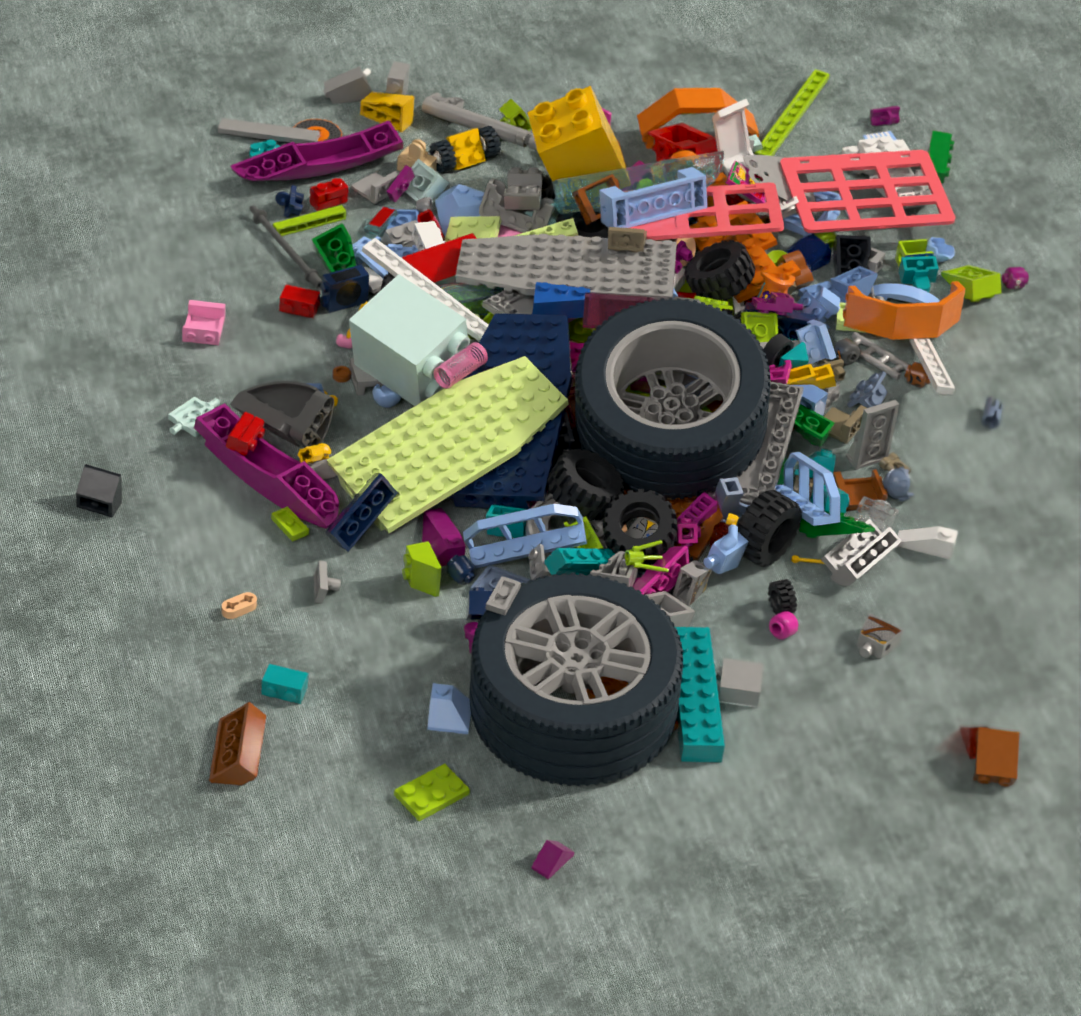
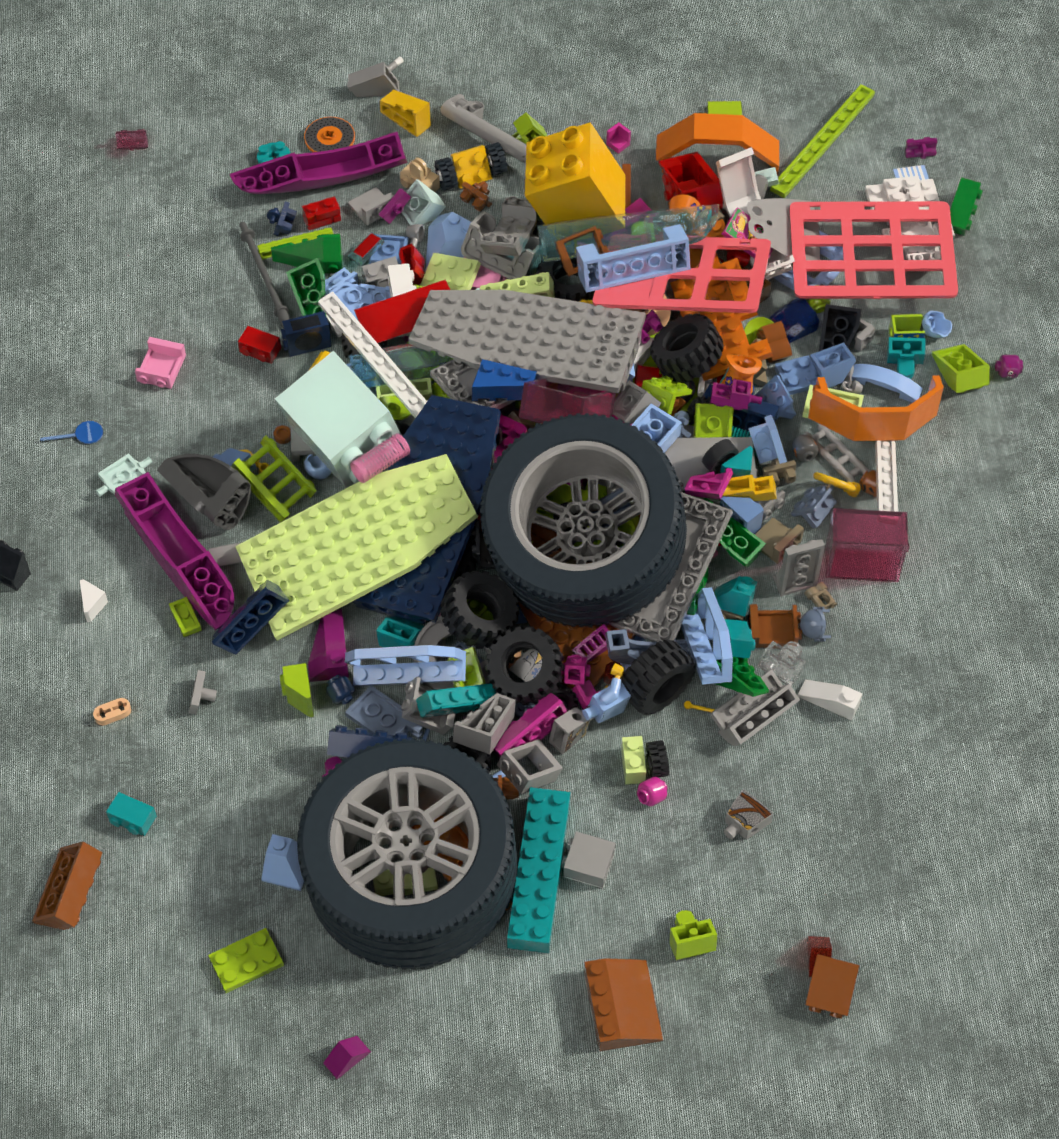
camera: 15 degrees right, 15 degrees up
(120, 145) = (131, 139): none -> clear pink hips
(143, 384) = (86, 432): none -> blue piece
(192, 515) = (93, 599): none -> white slope
(245, 434) = (158, 512): red brick -> none
(267, 131) = (282, 131): light grey tile -> none
(310, 227) = (326, 248): none -> green wedge
(314, 453) = (225, 537): yellow piece -> none
(344, 418) = (265, 495): none -> lime fence
(398, 79) = (421, 79): light grey slope -> none
(475, 170) = (481, 199): none -> dark orange hips
(503, 595) = (341, 764): light grey plate -> none
(626, 239) = (591, 309): dark tan bracket -> none
(636, 557) = (505, 709): lime plant -> none
(698, 551) = (584, 693): none -> dark pink panel
(758, 601) = (633, 760): none -> yellowish green brick
(801, 792) = (622, 1003): none -> dark orange slope
(829, 301) = (797, 387): light blue brick -> none
(856, 732) = (692, 936): none -> lime brick
(898, 377) = (850, 488): none -> yellow piece
(931, 414) = (866, 544): none -> clear pink container
(992, 413) = (941, 538): sand blue arm -> none

